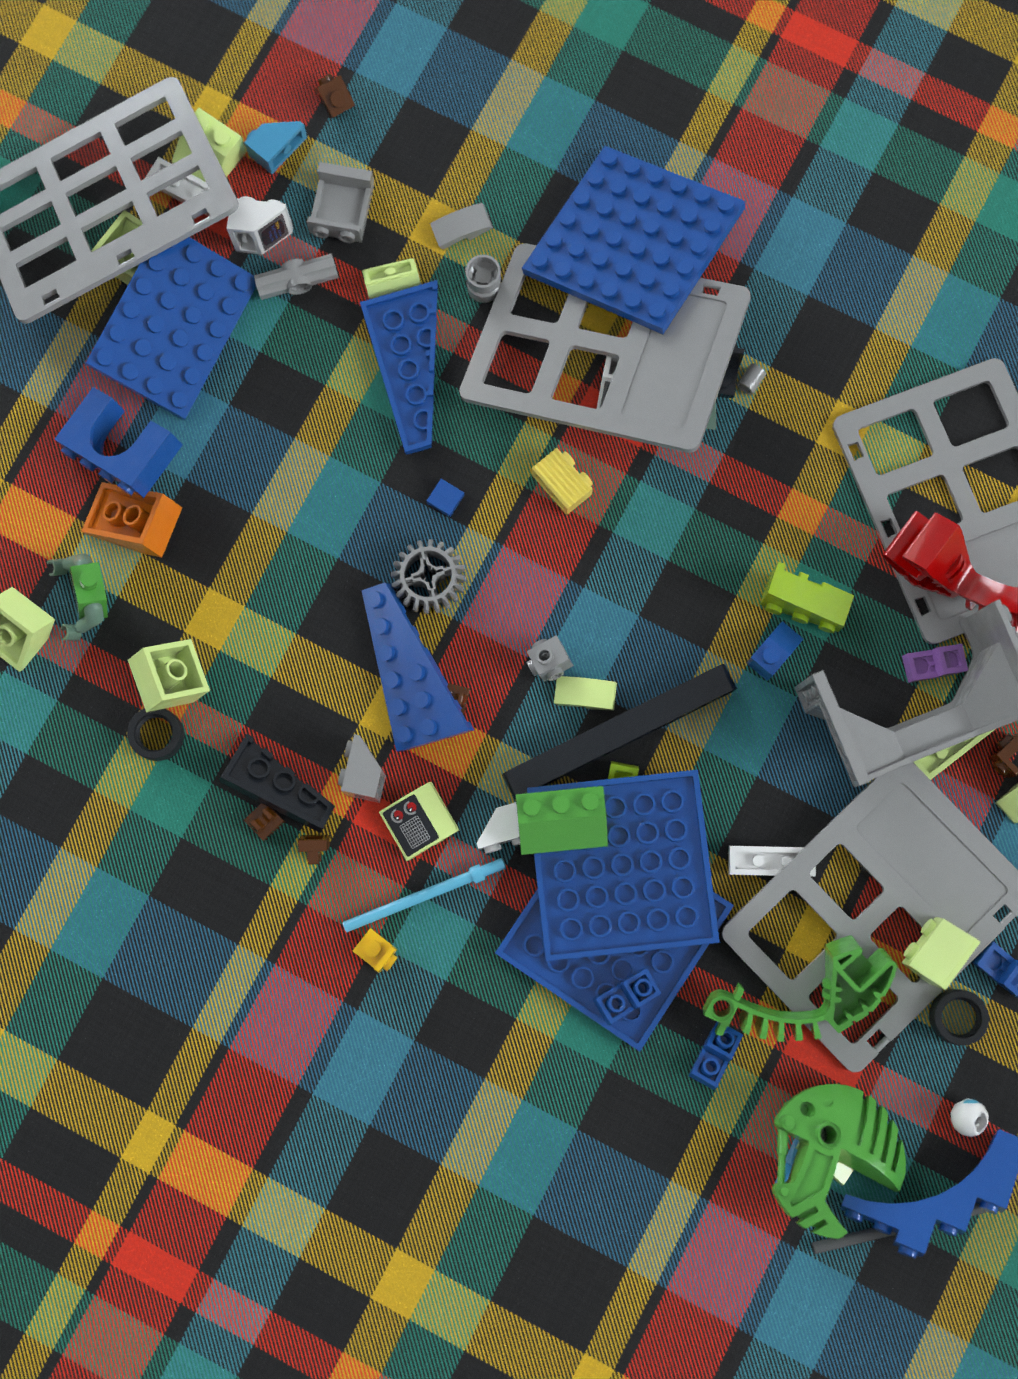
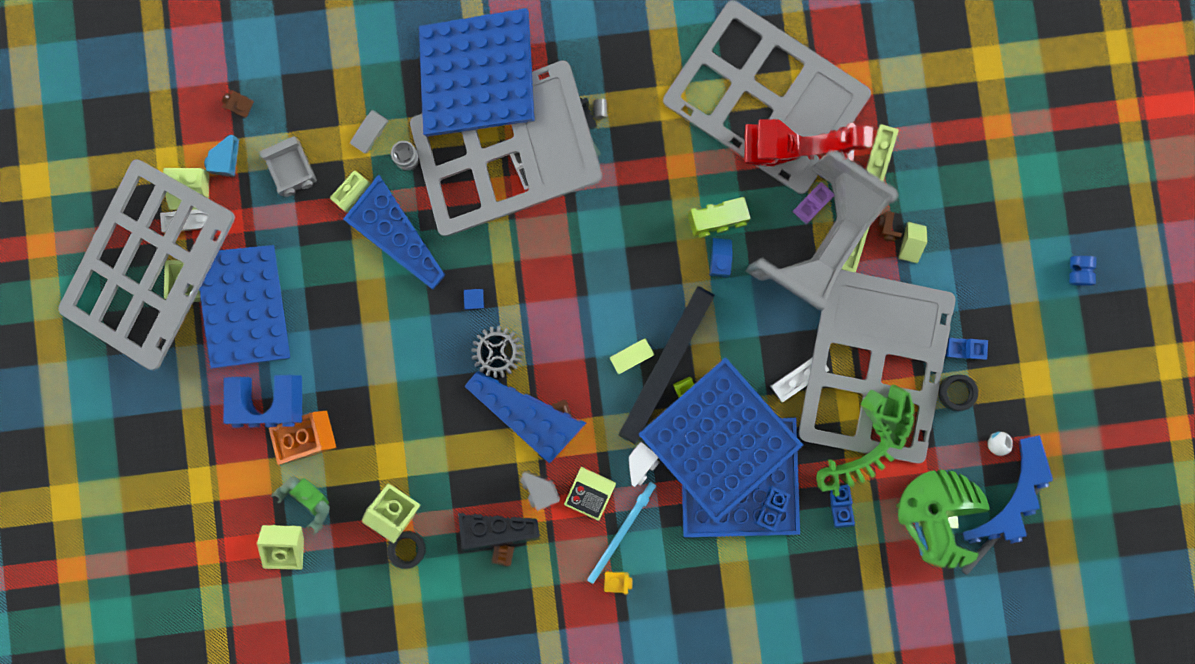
camera: 40 degrees left, 5 degrees up
(258, 225) = (250, 214): white slope -> none
(296, 276) = (294, 229): light grey piece -> none
(314, 846) = (541, 549): reddish brown tile -> none
(548, 659) = (605, 349): light grey brick -> none
(562, 480) = (534, 243): light yellow brick -> none
(562, 820) = (671, 439): bright green slope -> none
(939, 952) = (926, 366): yellowish green slope -> none

